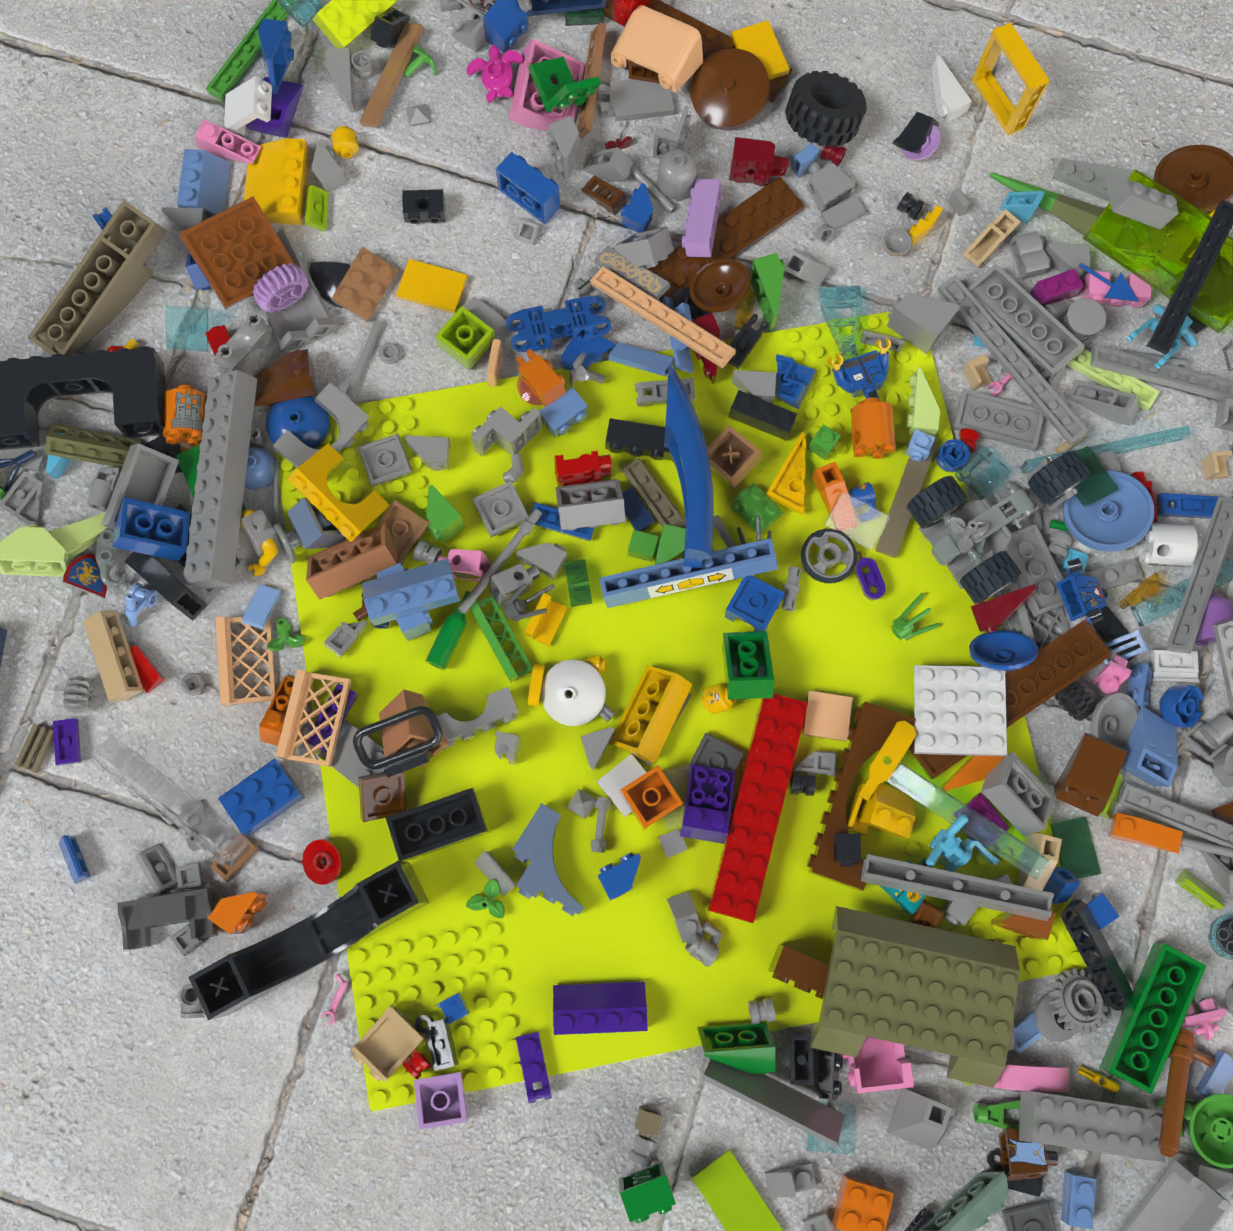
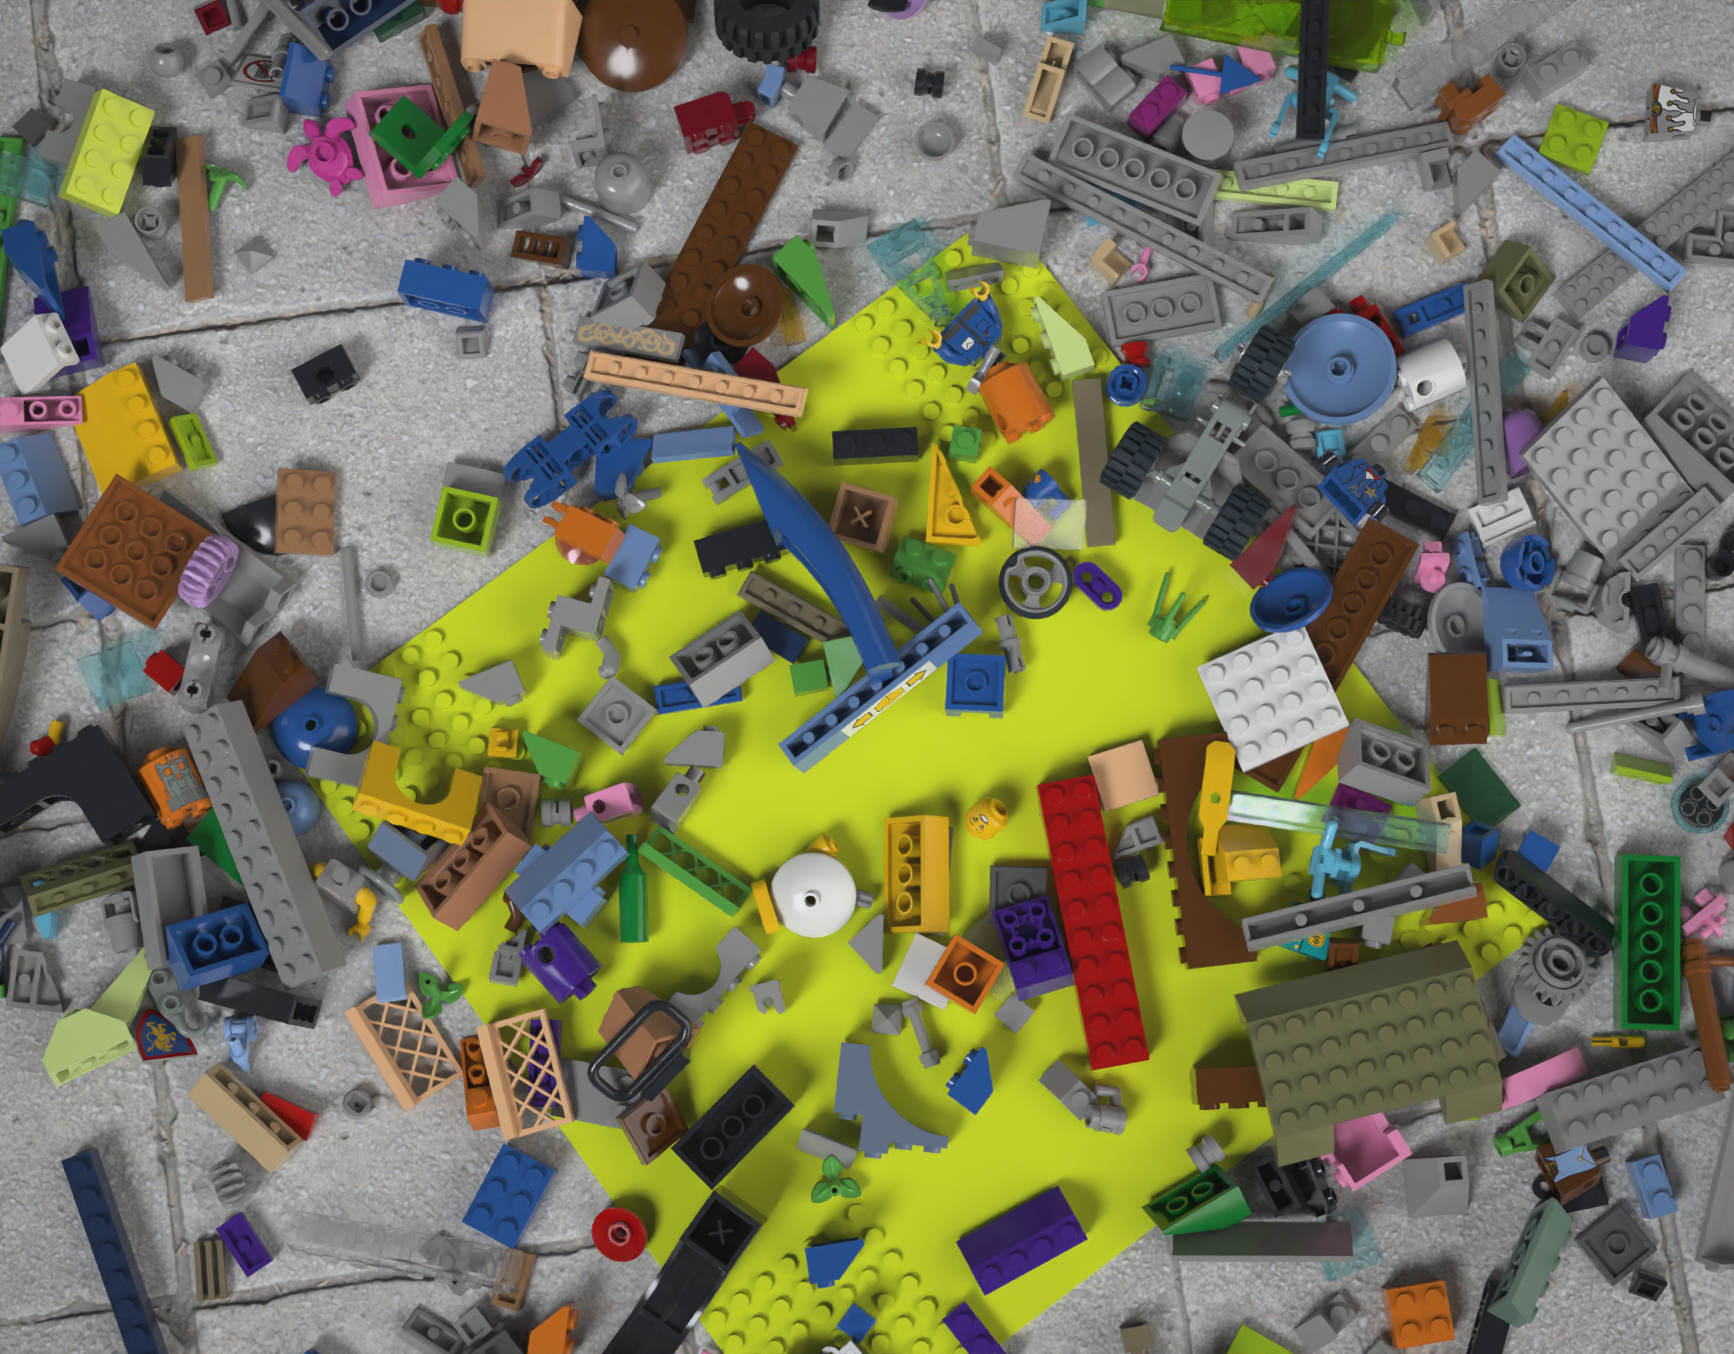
camera: 20 degrees left, 5 degrees up
(276, 493) = (333, 825): light grey axle -> none
(344, 142) = (182, 337): yellow head -> none
(377, 654) = (569, 970): none -> dark purple cylinder
(384, 460) = (445, 722): light grey tile -> none
(415, 492) = (503, 743): none -> yellow tile
(432, 286) = (388, 472): yellow tile -> none
(457, 953) = (831, 1259): none -> blue slope
(494, 362) = (517, 535): light nougat tile -> none
(516, 608) = (695, 827): dark grey plant -> none
(524, 529) = (659, 725): light grey bar -> none
(544, 626) = (738, 823): yellow panel -> none
(578, 583) = (754, 760): clear green slope -> none
(582, 469) = (692, 622): red hips -> none
(621, 90) = (503, 110): none -> nougat slope
(703, 218) = (681, 226): lavender brick -> none
(746, 340) = (810, 360): black hinge -> none
(747, 665) = (1002, 764): green brick -> none
(756, 383) = (850, 411): light grey slope -> none
(792, 380) = (890, 382): blue slope -> none
(847, 849) = (1216, 924): black brick -> none
(867, 394) = (986, 364): none -> light grey bar
(919, 446) = (1081, 394): light blue bracket -> none
(924, 226) = (957, 106): yellow slope -> none
(973, 529) = (1193, 476): light grey plant -> none
(1098, 482) = (1311, 338): clear green piece -> none
(1140, 639) = (1444, 509): medium blue tile -> none
(1145, 833) = (1551, 735): orange slope -> none

